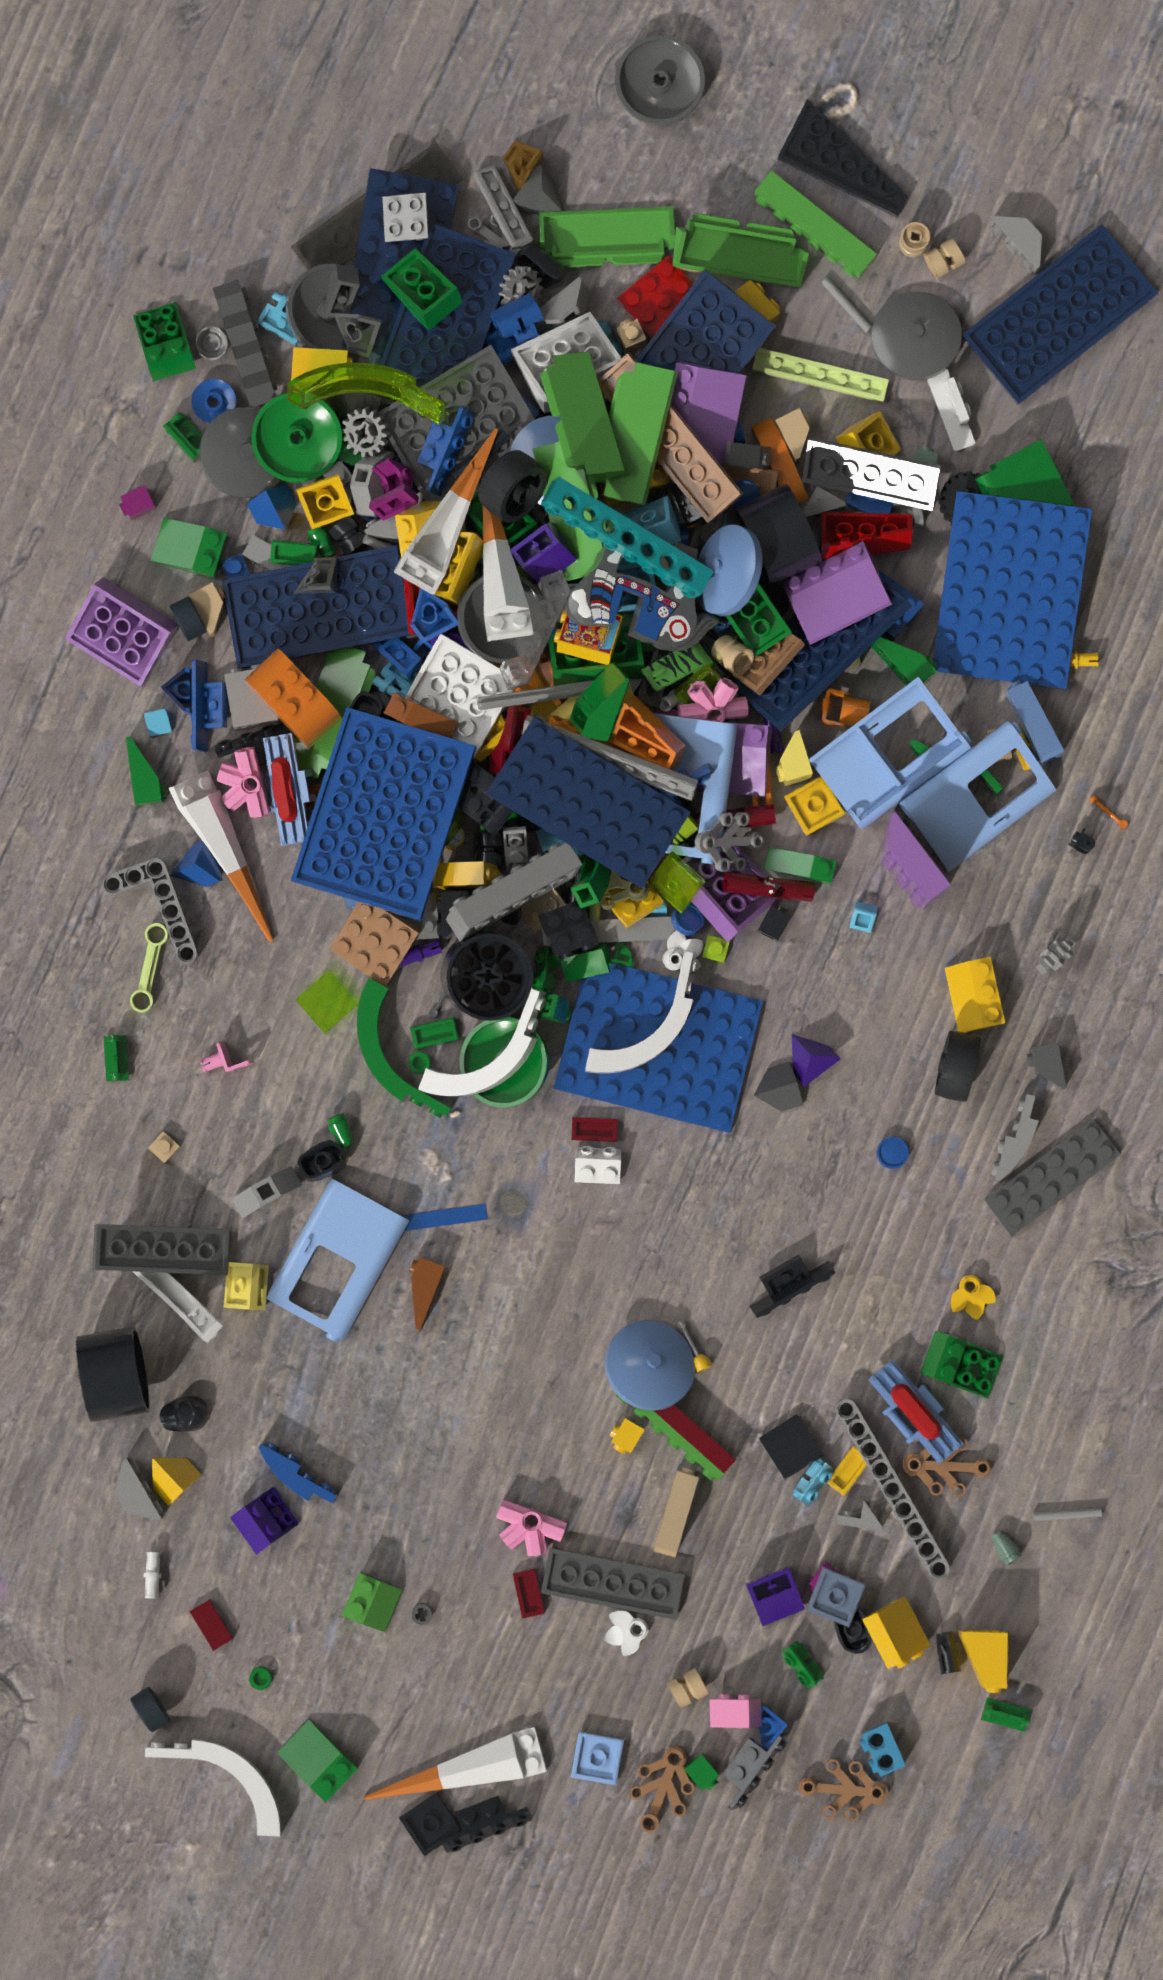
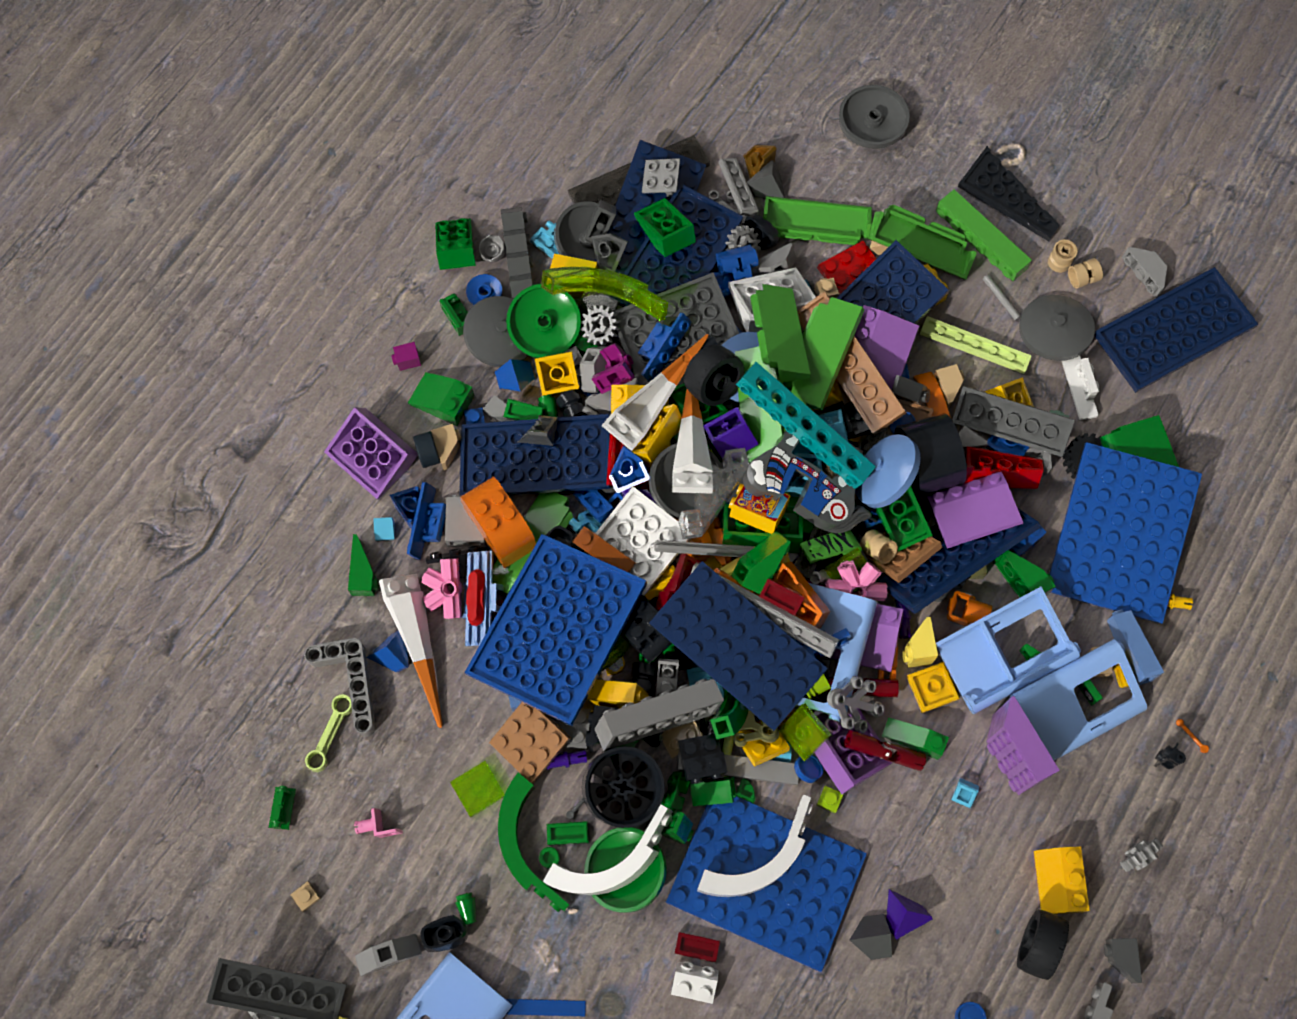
camera: 10 degrees right, 15 degrees down
(628, 741) = (781, 596): none -> dark red tile
(676, 946) = (796, 789): white plate -> none
(774, 922) = (885, 784): black brick -> none

